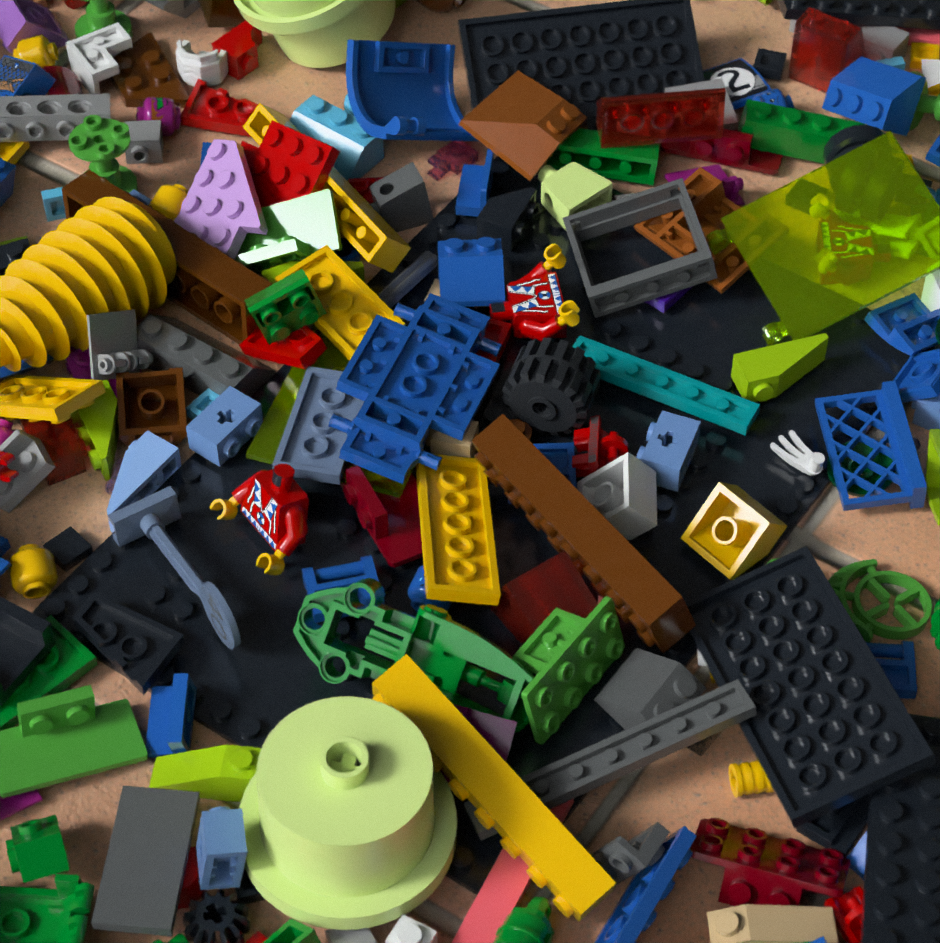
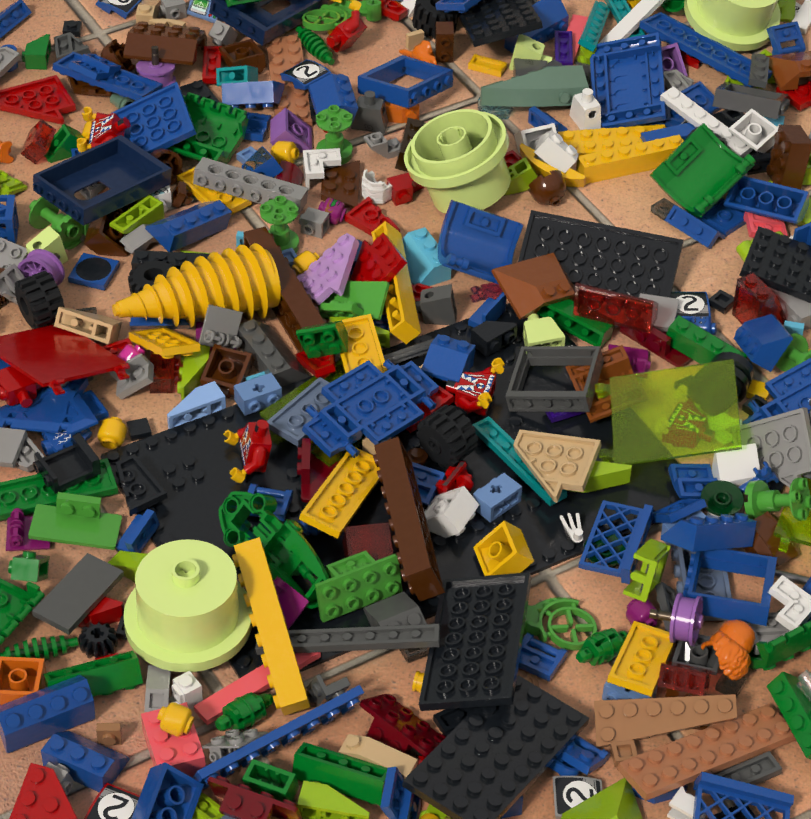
camera: 25 degrees right, 5 degrees down
(149, 518) = (186, 427): sand blue piece -> none
(221, 848) = (113, 599): medium blue brick -> none
(727, 363) = (557, 460): none -> tan wing

